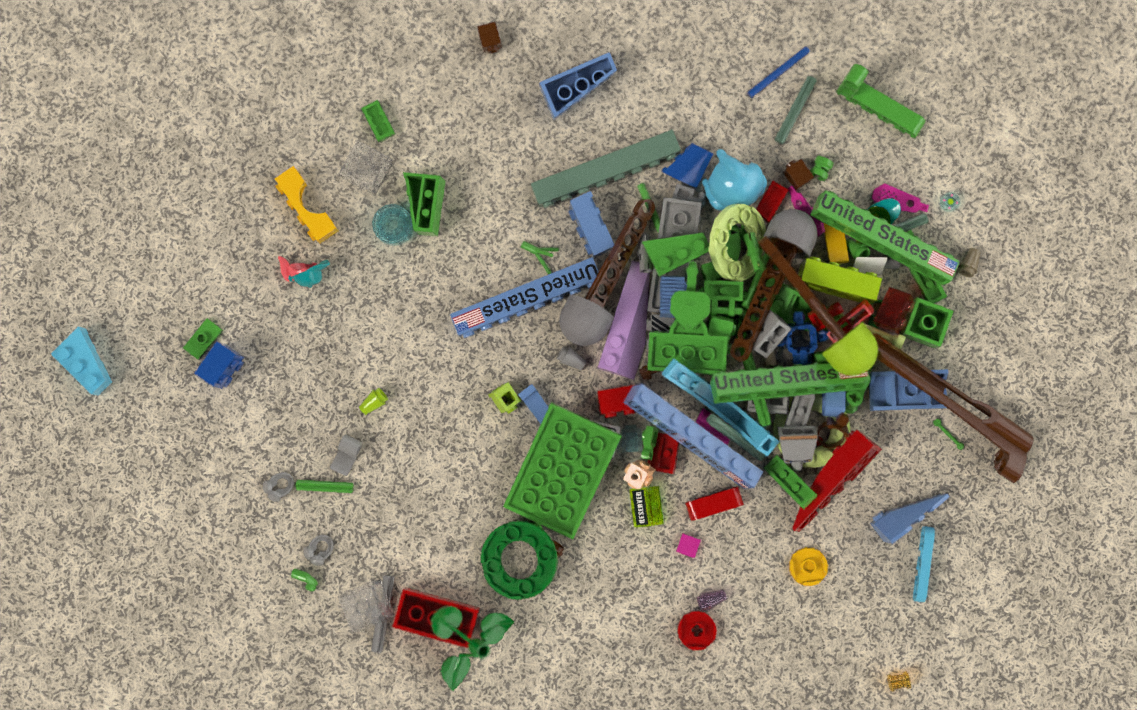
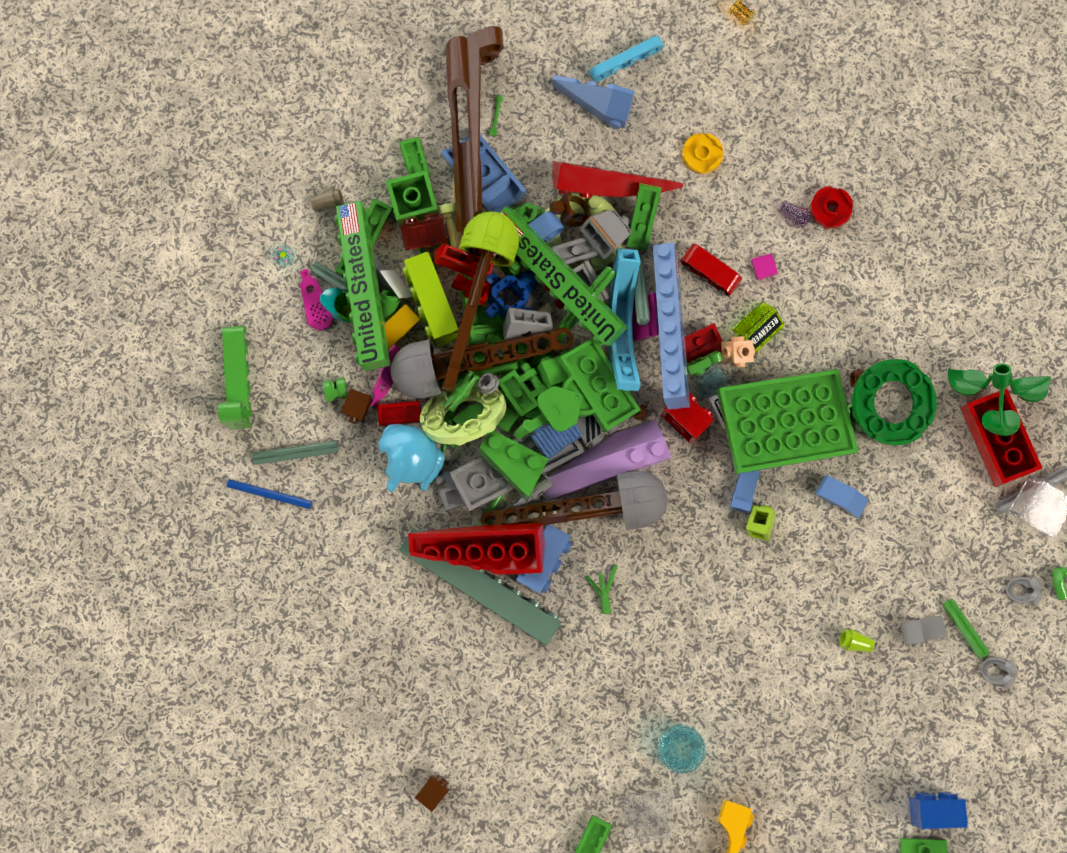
camera: 120 degrees left, 5 degrees down
(303, 274) = (794, 806): hair -> none
(425, 201) = (637, 733): bright green wedge -> none
(480, 470) = (842, 495): none -> medium blue slope
(525, 297) = (656, 572): medium blue brick -> none
(571, 358) = (679, 491): light grey cone -> none
(574, 84) = (422, 675): medium blue wedge -> none
(626, 191) = (488, 547): none -> red wedge
(690, 165) = (419, 510): blue slope -> none
(745, 274) = (488, 383): none -> light grey plate
(958, 349) = (414, 156): none -> bright green plate

